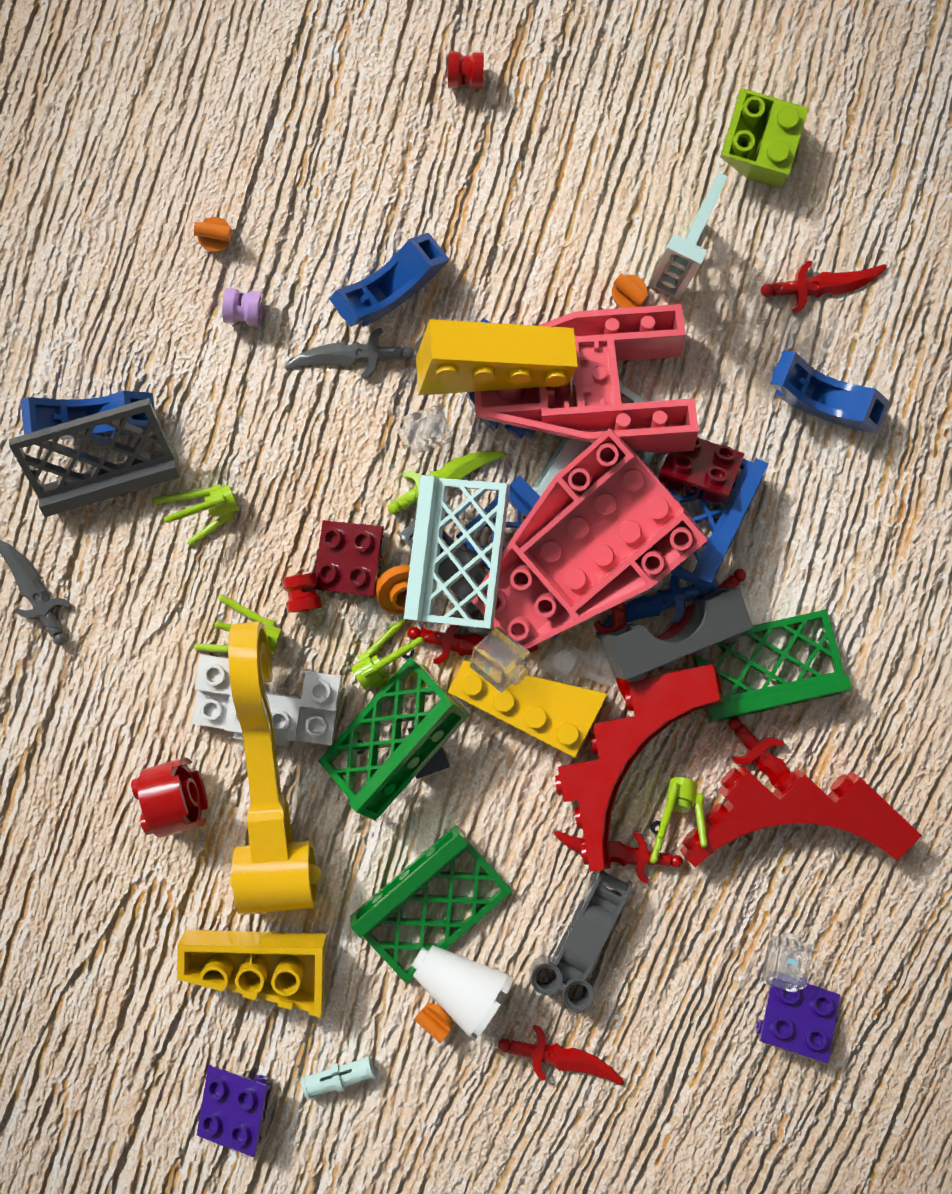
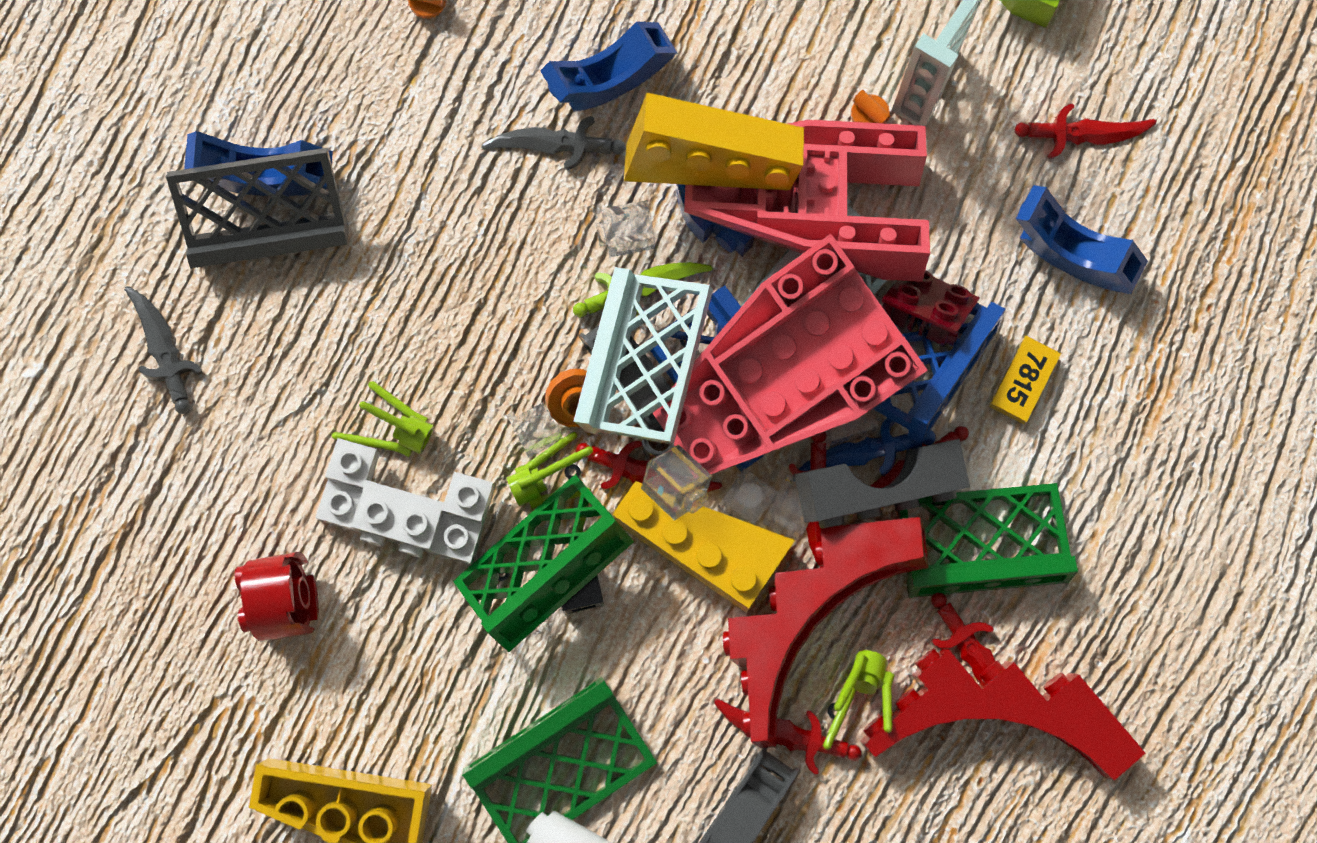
camera: 10 degrees right, 10 degrees down
(219, 502) = (386, 277): lime plant -> none
(243, 307) = (445, 76): lavender wheel -> none
(273, 869) = (383, 695): yellow piece -> none
(301, 592) = (463, 388): red wheel -> none
(349, 557) = (522, 357): dark red hinge -> none
(790, 520) = (1024, 380): none -> yellow tile

